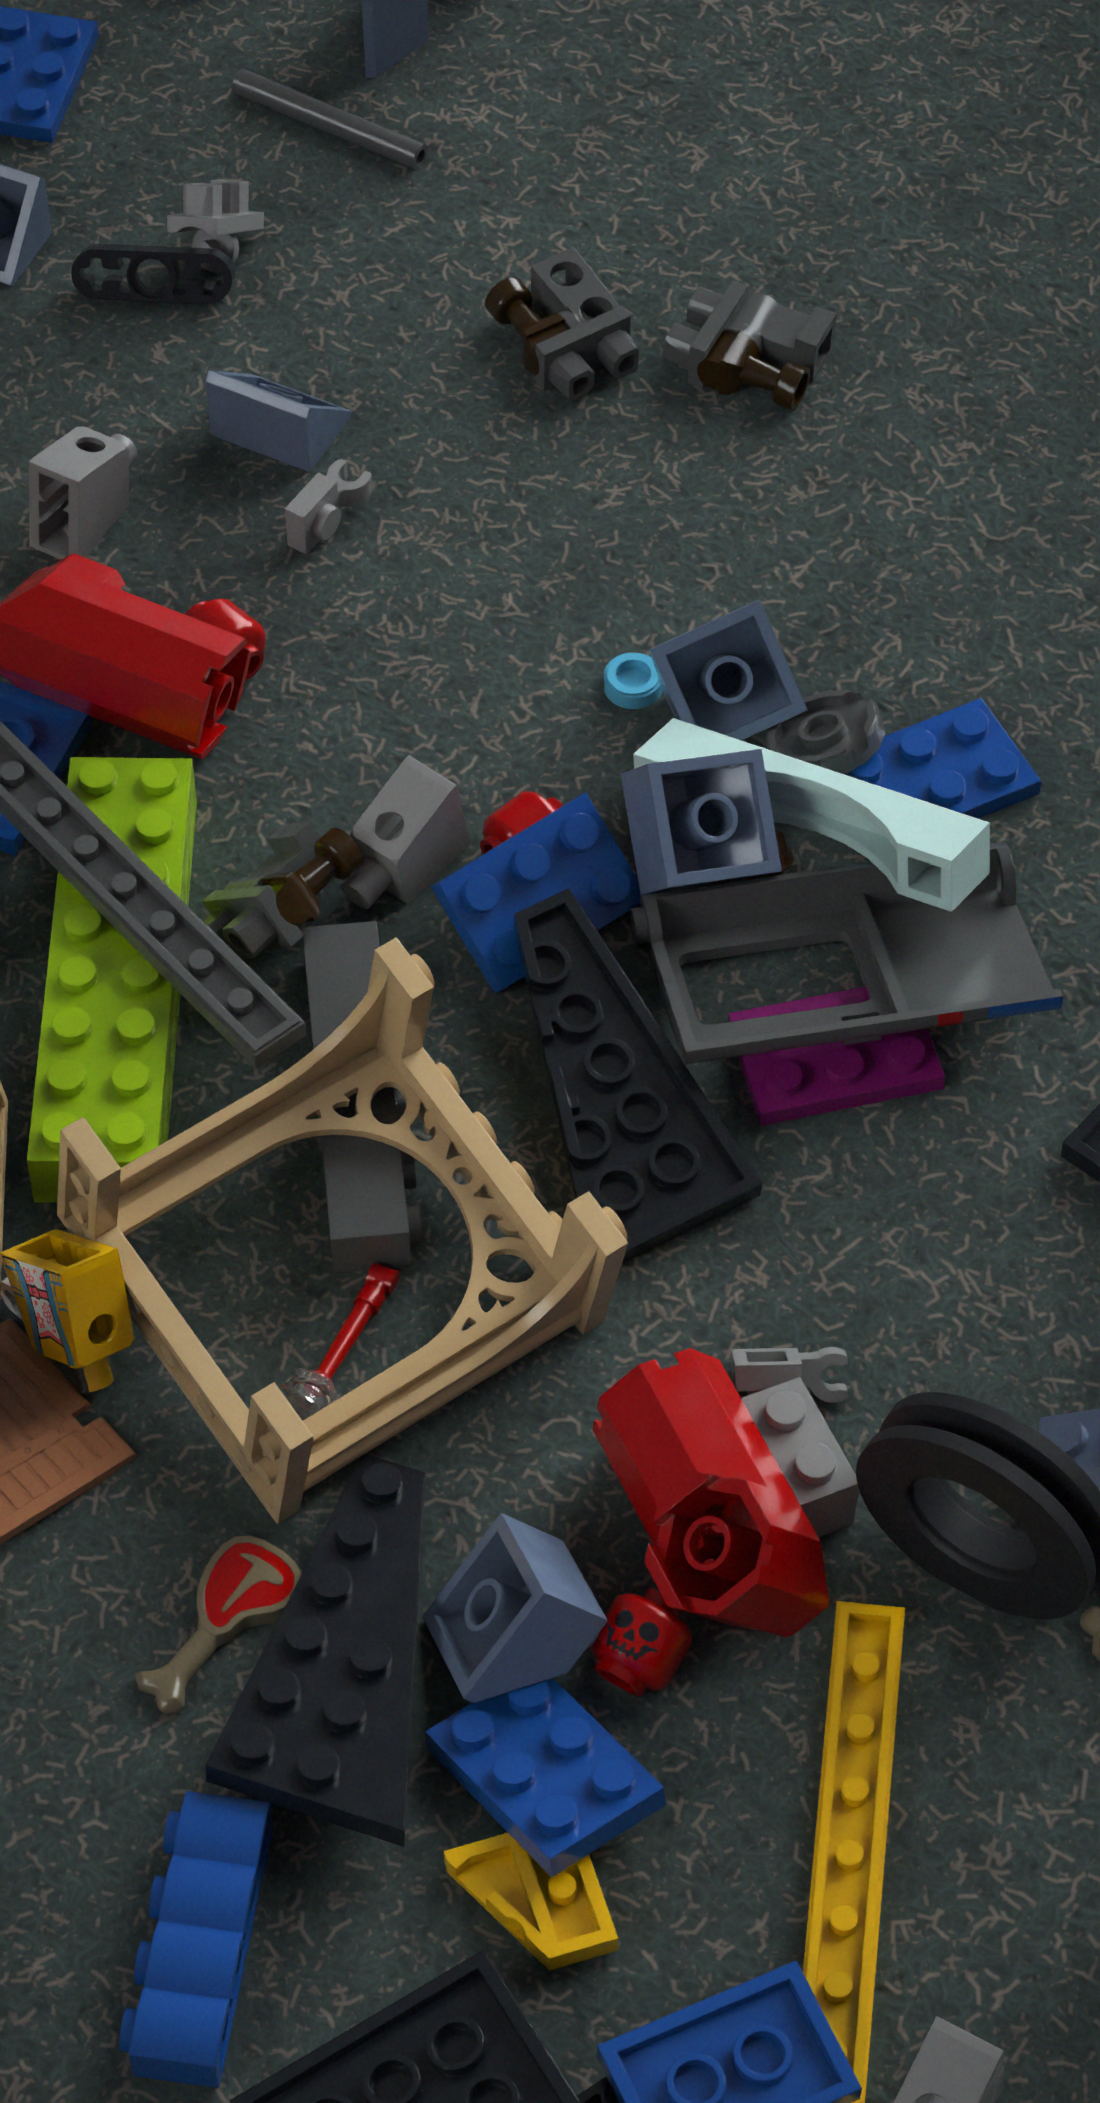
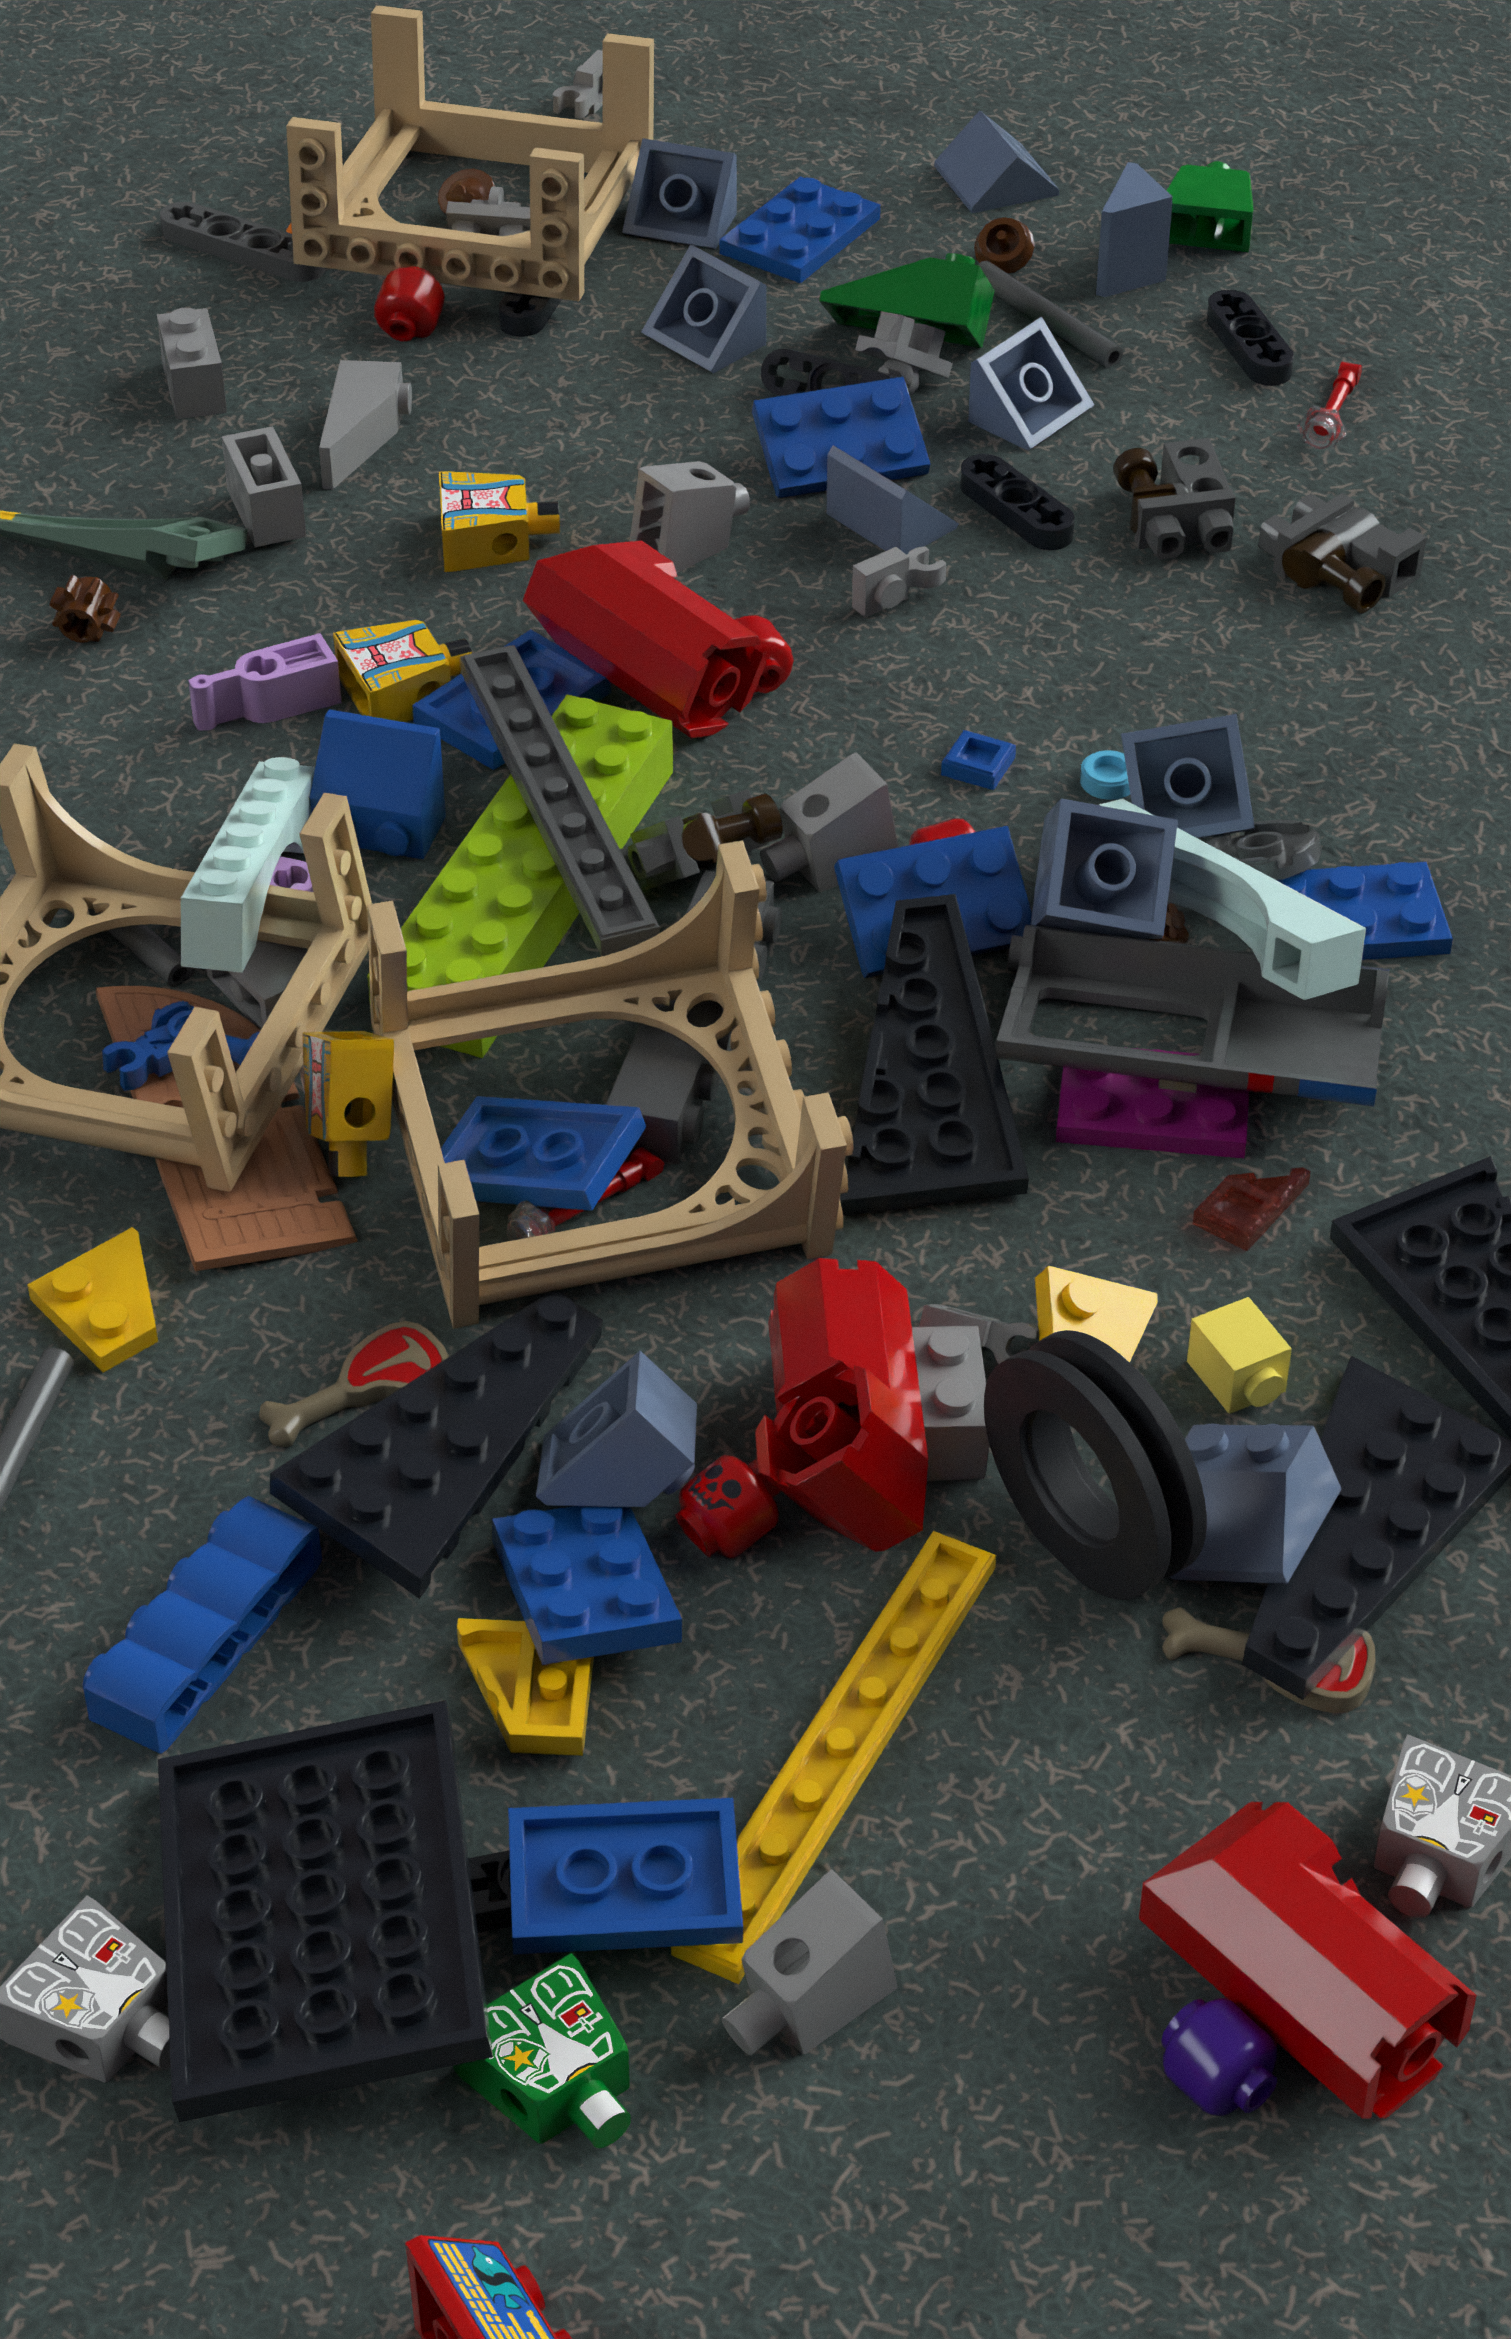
camera: 20 degrees right, 10 degrees down
(196, 327) = (862, 419): none -> blue plate
(217, 147) = (931, 291): none -> green slope
(250, 42) = (1005, 244): none -> reddish brown hat
(285, 1305) = (543, 1150): none -> blue plate
(357, 229) = (1025, 388): none -> sand blue slope
(392, 350) = (1039, 521): none -> black beam
(498, 700) = (978, 760): none -> blue tile
(544, 76) = (1251, 322): none -> black beam
(668, 193) = (1323, 426): none -> piece
(889, 1336) = (1094, 1307): none -> yellow wing
(971, 1143) = (1247, 1206): none -> clear red tile
(1039, 1319) = (1239, 1355): none -> light yellow brick

